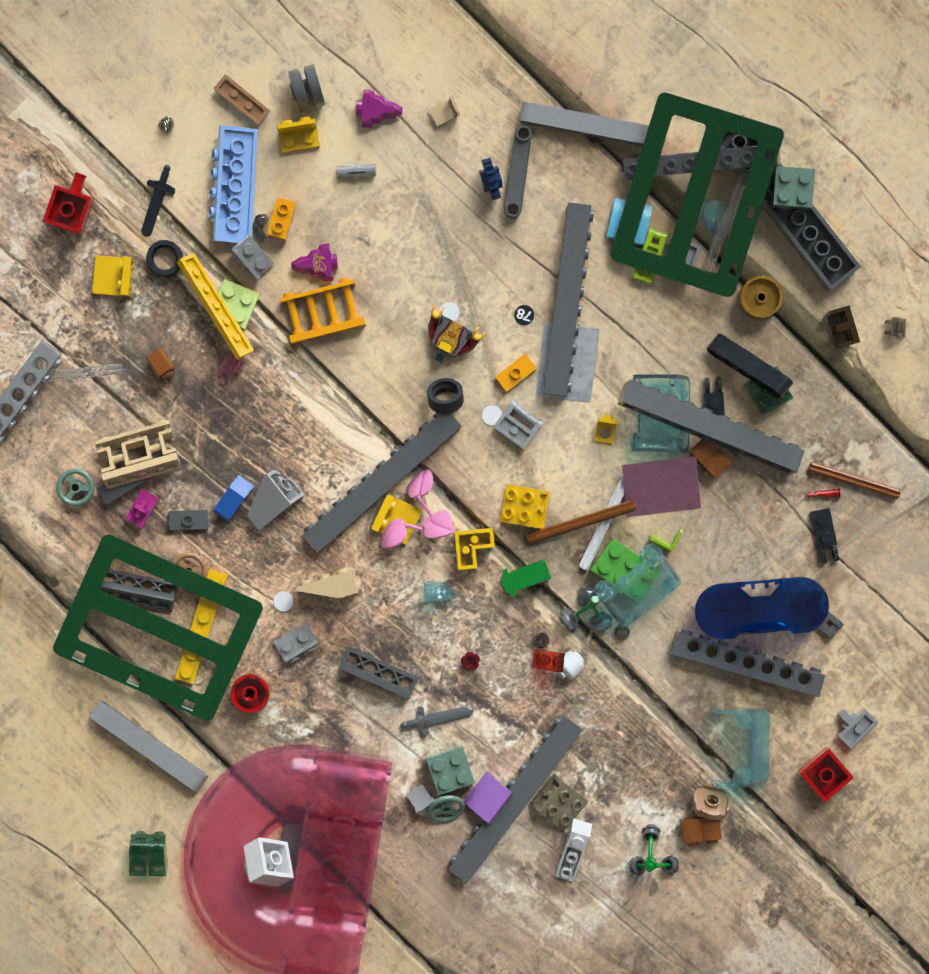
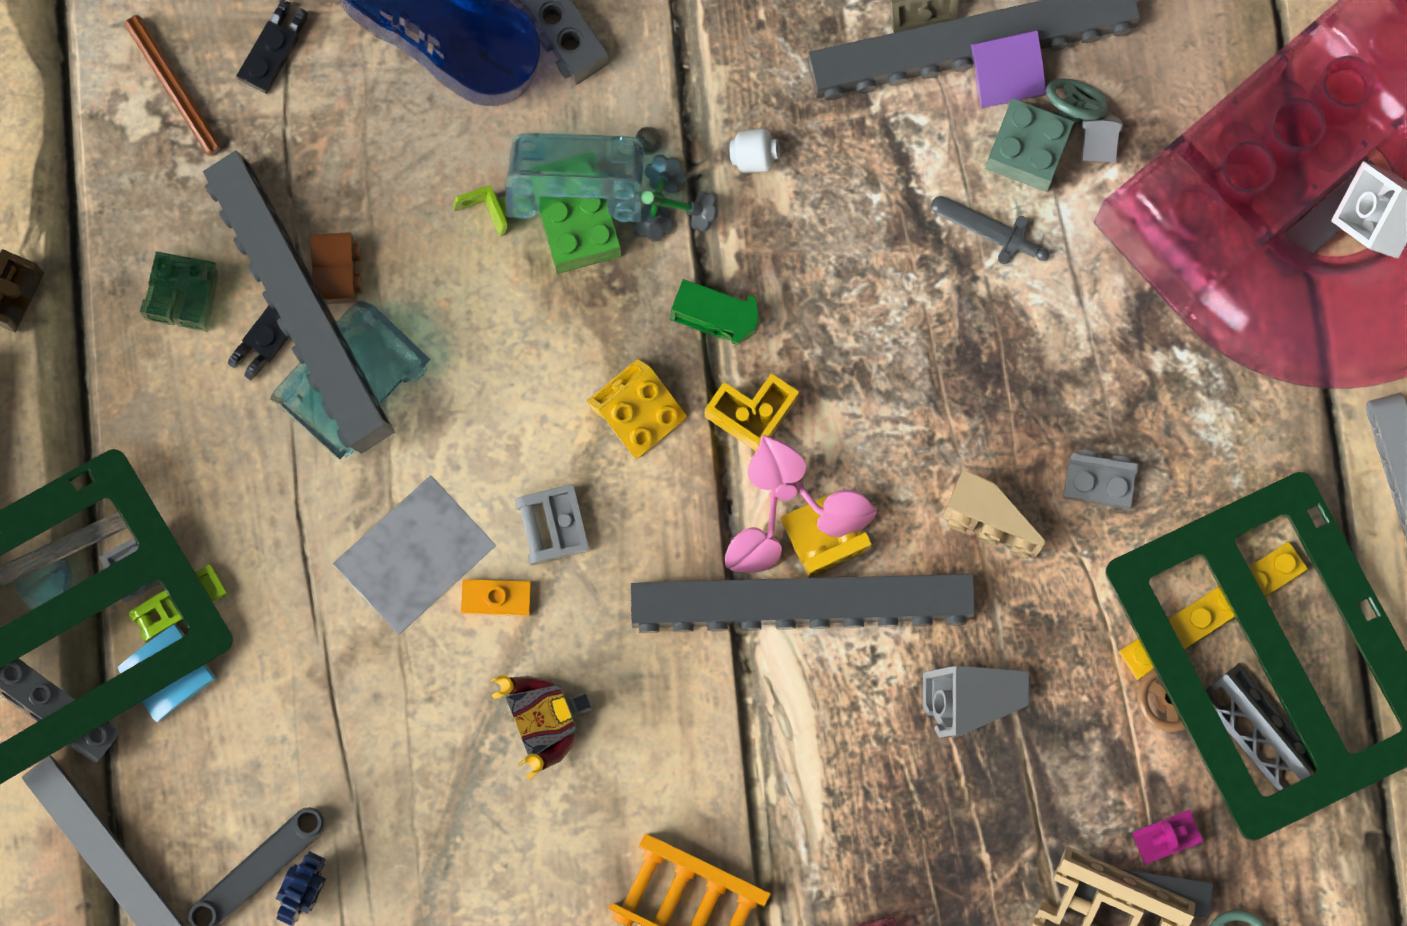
camera: 140 degrees left, 10 degrees down
(188, 520) = (1114, 770): dark grey plate -> none
(233, 498) = (1027, 746): blue slope -> none
(261, 695) = (1234, 451): red brick -> none
(283, 601) = (1071, 552): white sticker -> none
(379, 681) = (1032, 344): dark grey fence -> none
(438, 591) = (850, 392): clear light blue brick -> none
(446, 406) = (603, 657): black tyre -> none
(450, 310) = (510, 755): white sticker -> none
(475, 660) = (886, 257): dark red plate -> none
(491, 414) = (577, 569): white sticker -> none
(524, 314) = (417, 667): black sticker -> none
(544, 638) = (766, 215): clear smoke hinge -> none
(548, 660) = (778, 178): clear red plate -> none
(567, 299) = (340, 637): dark grey brick -> none
(581, 522) = (579, 323): dark orange axle -> none
(601, 528) = (538, 303): white axle -> none
(608, 422) = (430, 429): yellow bracket -> none
(662, 485) = (432, 283): clear pink sticker -> none
(749, 300) = (65, 411): pearl gold wheel -> none
(749, 365) = (175, 339): black beam -> none
(827, 493) = (218, 93): red piece -> none

